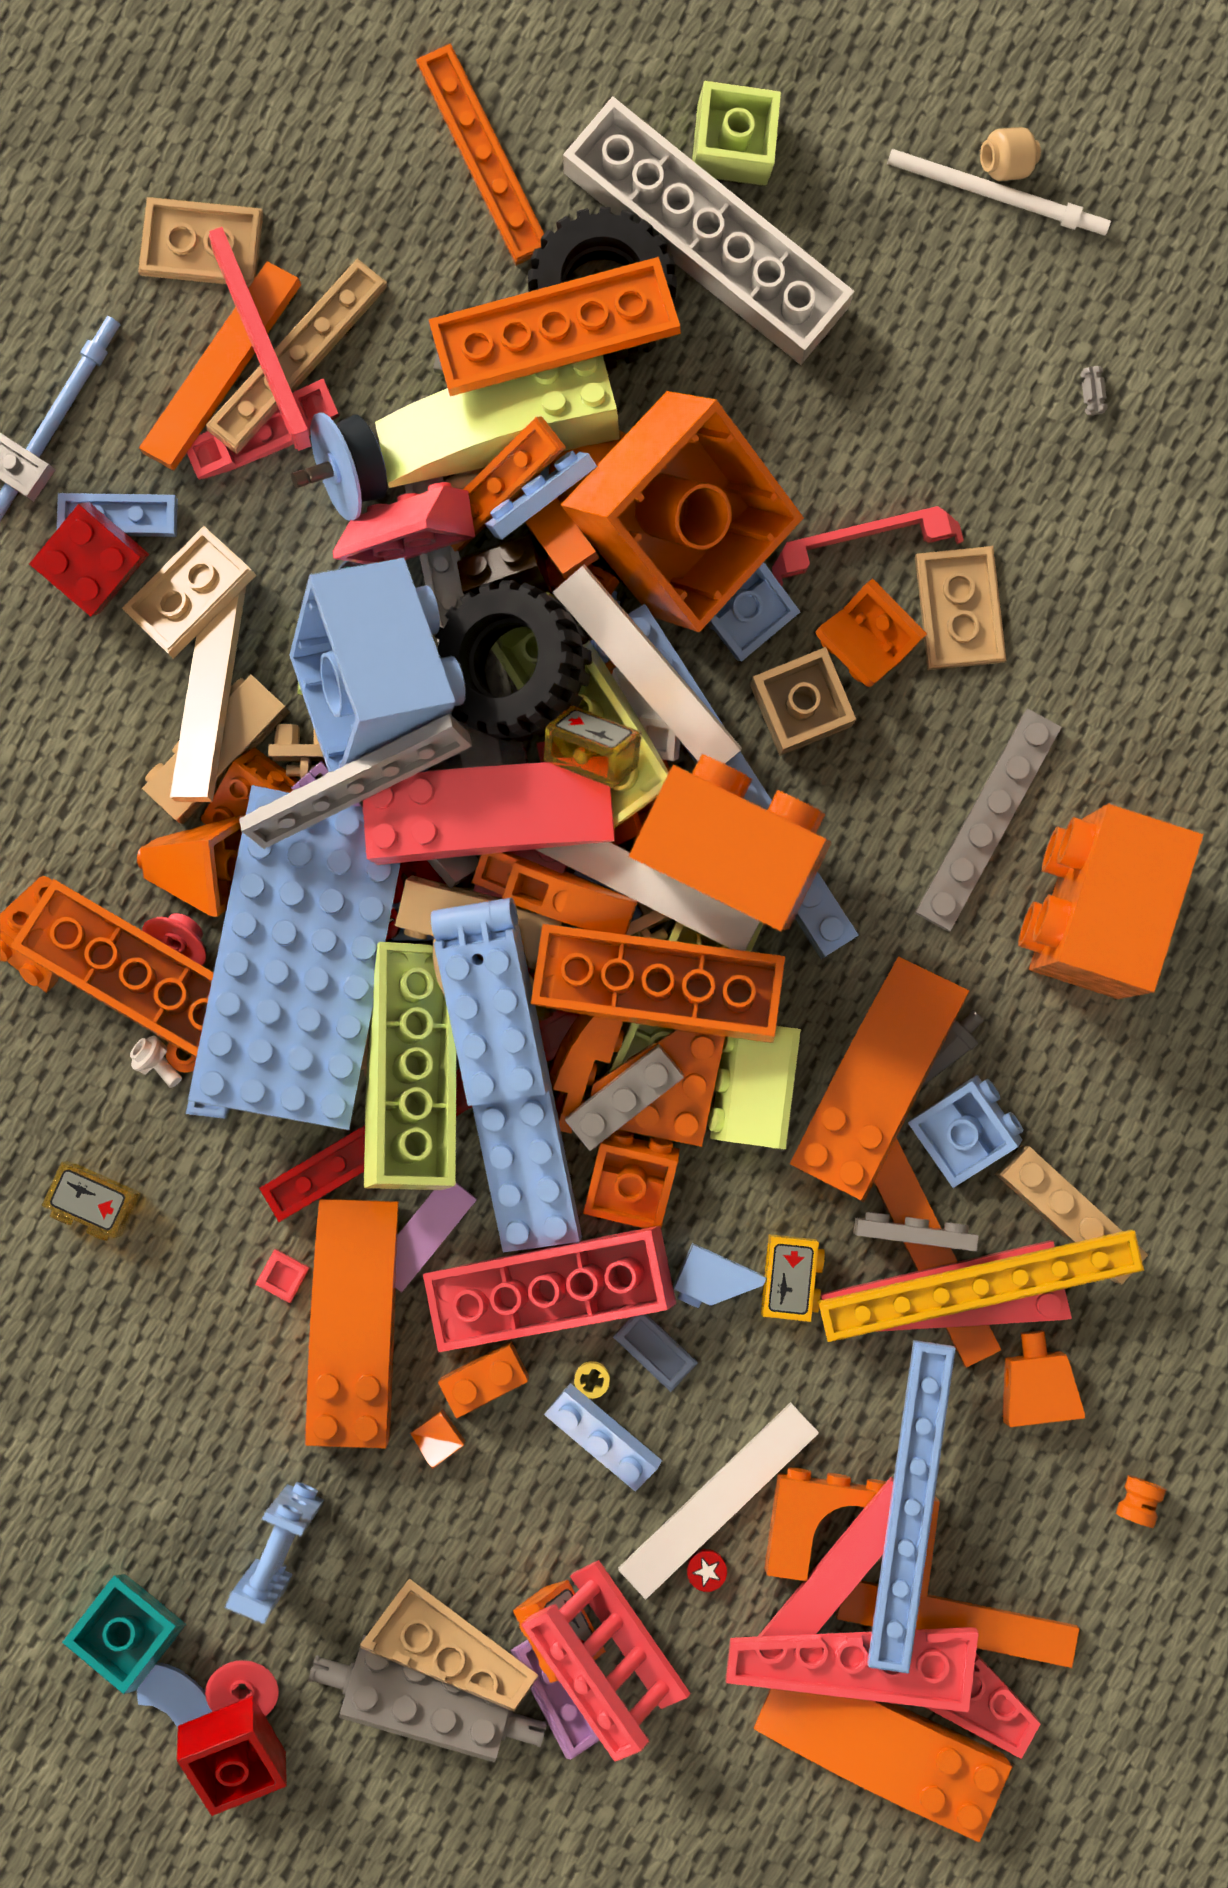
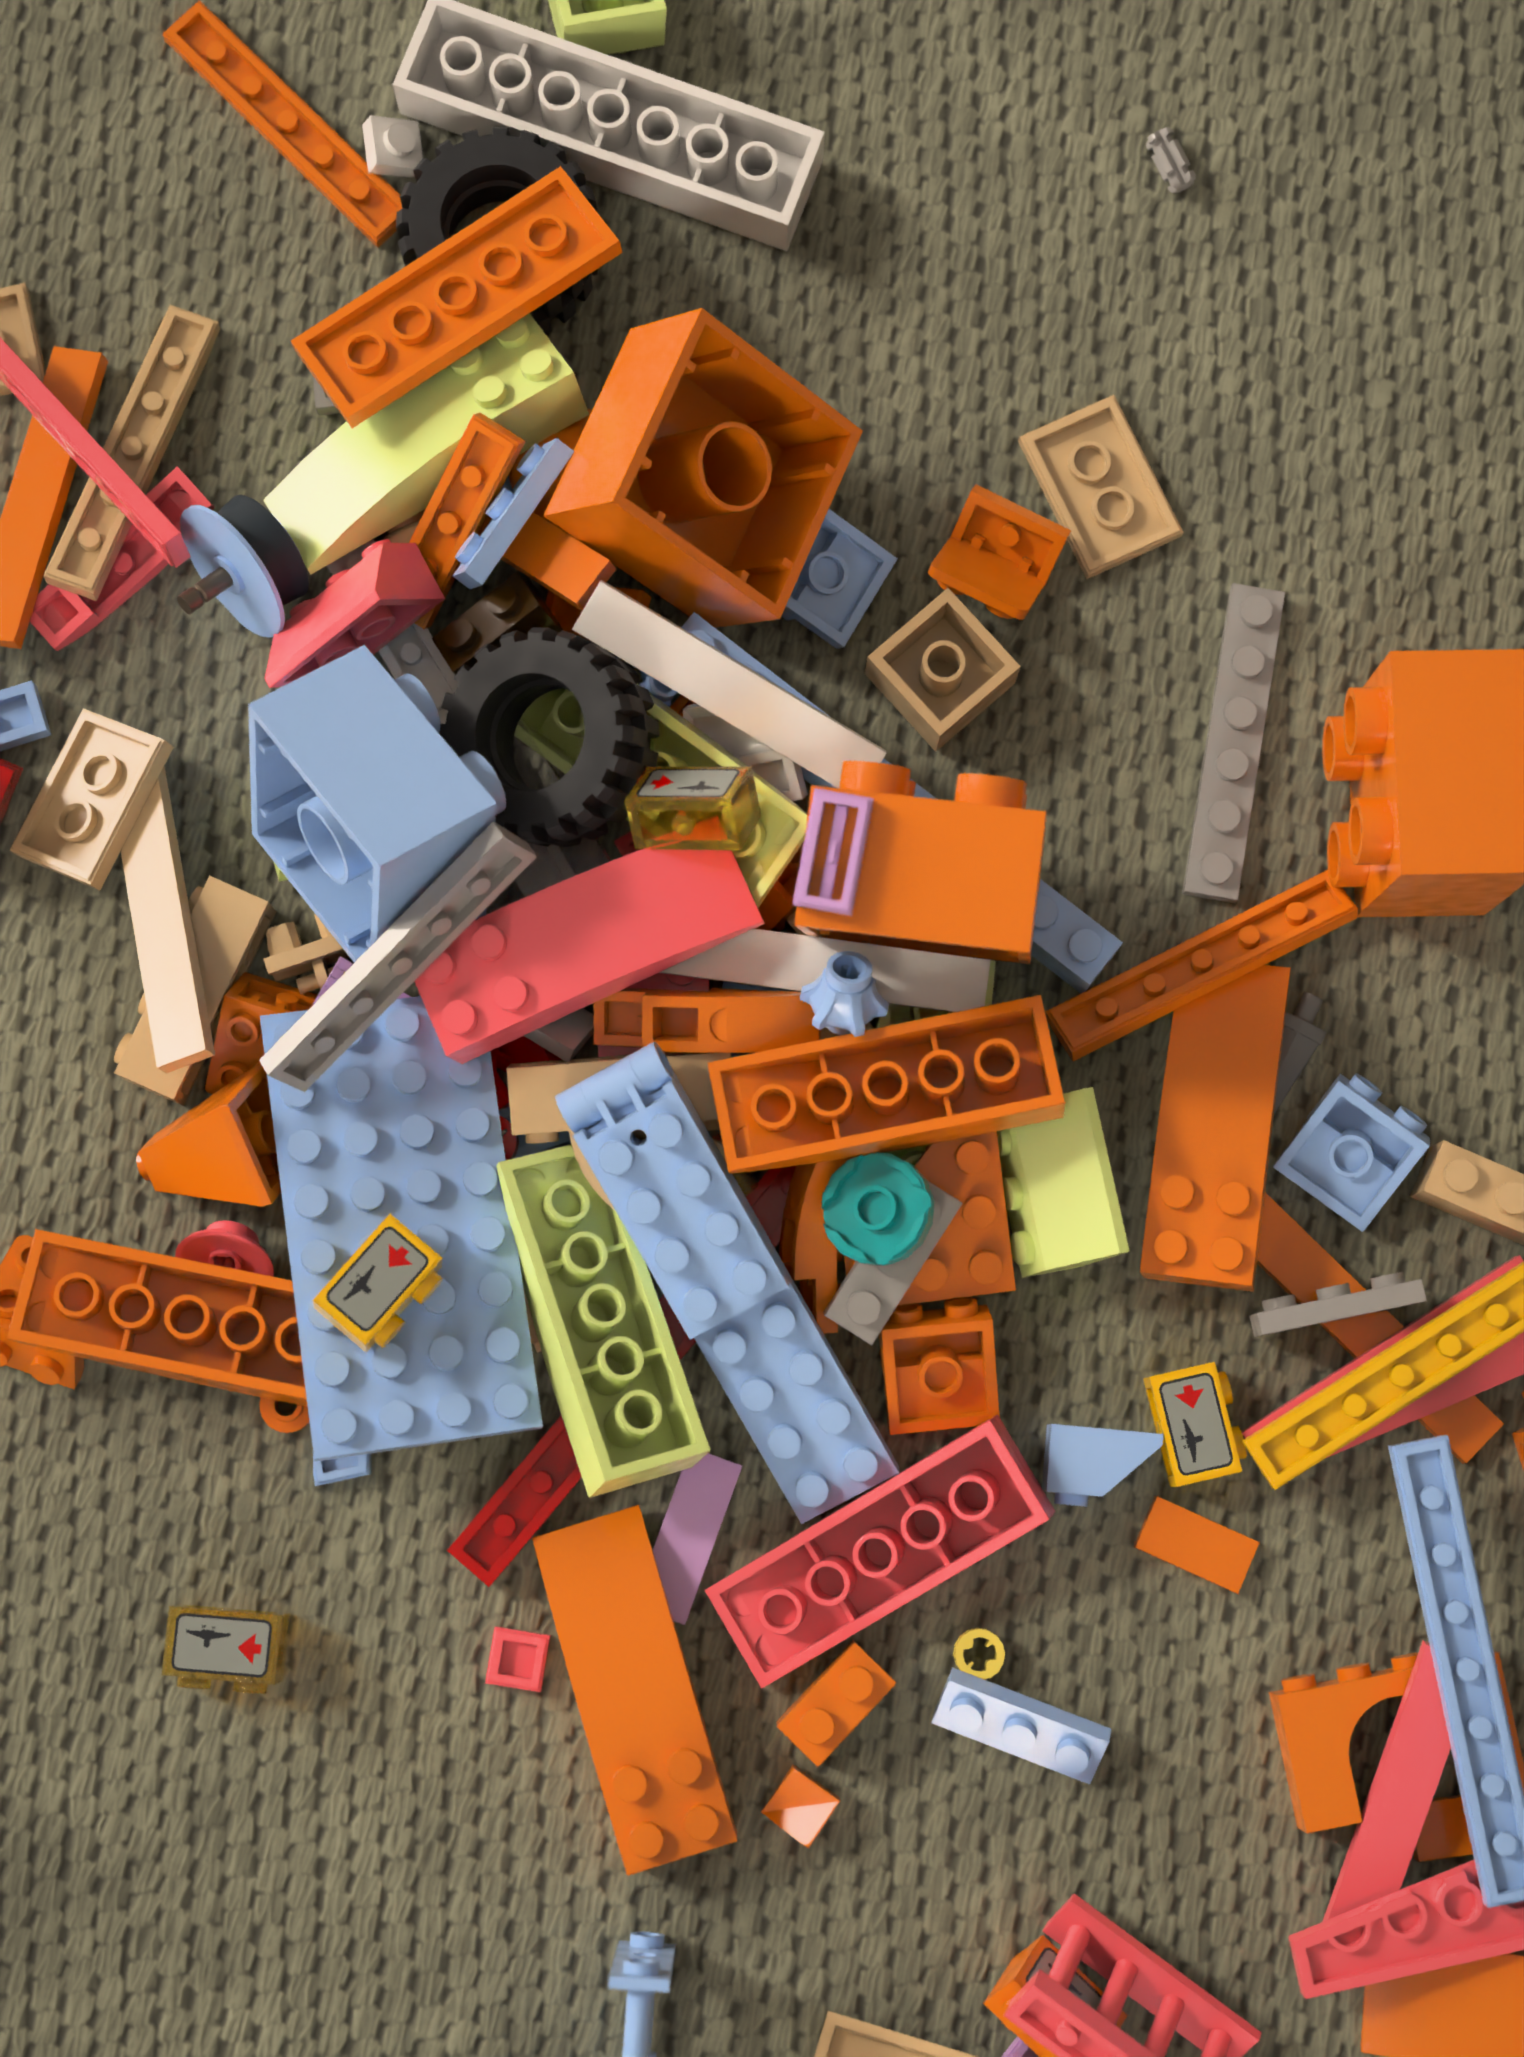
camera: 15 degrees left, 5 degrees down
(150, 1054) = (241, 1422): white plate -> none
(269, 998) = (380, 1284): none -> brick
(550, 196) = (392, 146): none -> white plate
(624, 1062) = (877, 1209): none -> teal tile
(651, 910) = (845, 995): none -> light blue rock
(655, 1350) = (1049, 1584): sand blue tile -> none
(689, 785) = (824, 901): none -> lavender tile
(706, 1570) = (1222, 1857): red tile -> none
(718, 1500) = (1203, 1758): white tile -> none
(764, 1358) = (1196, 1544): none -> orange tile
(908, 967) = (1200, 965): none -> orange tile
(934, 524) = (1027, 389): coral piece -> none

